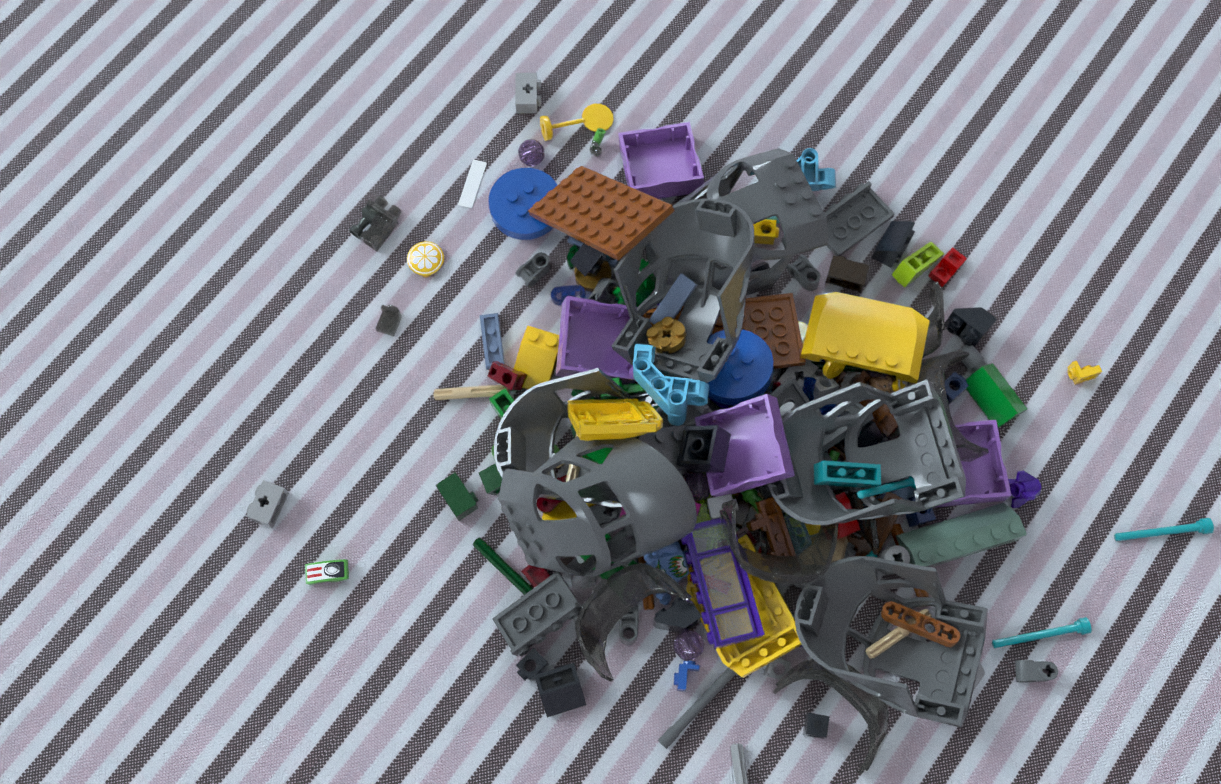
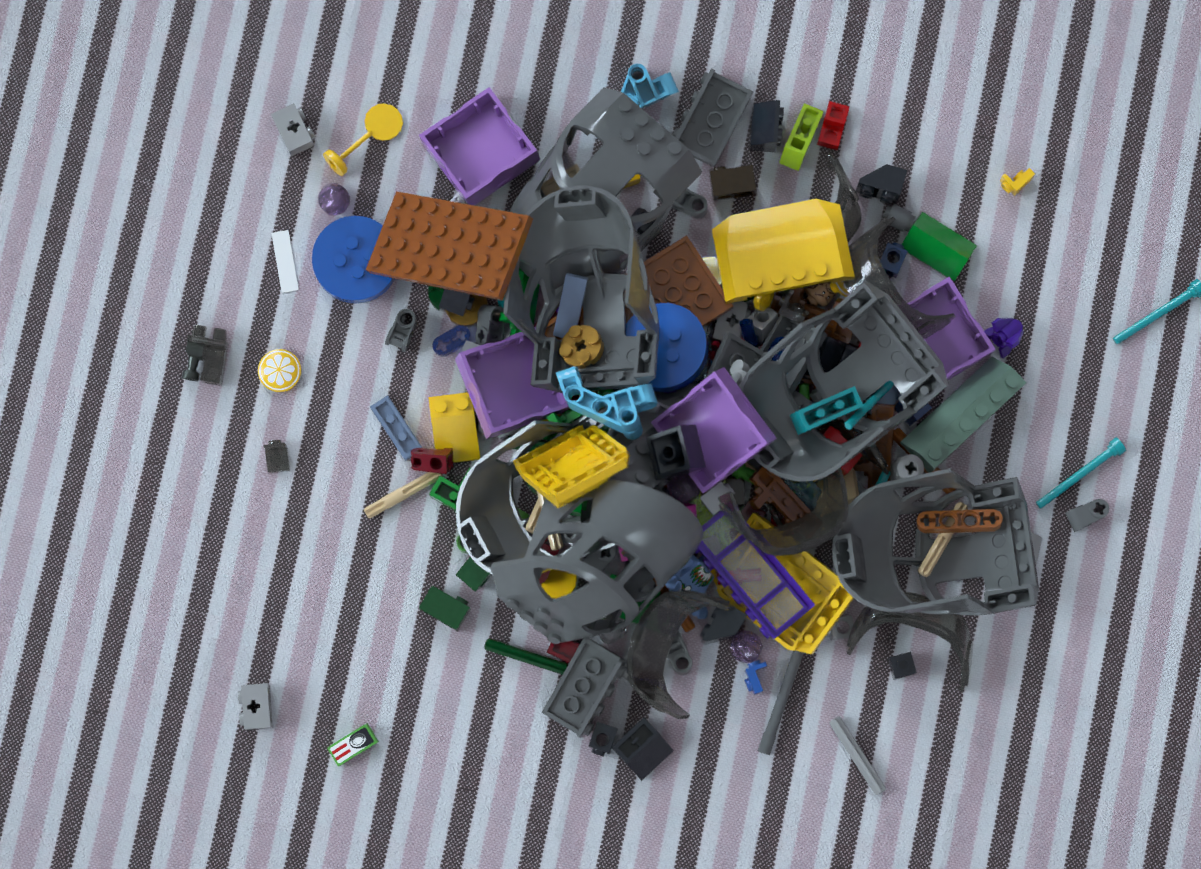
camera: 25 degrees left, 10 degrees up
(597, 139) = (398, 160): arm -> none

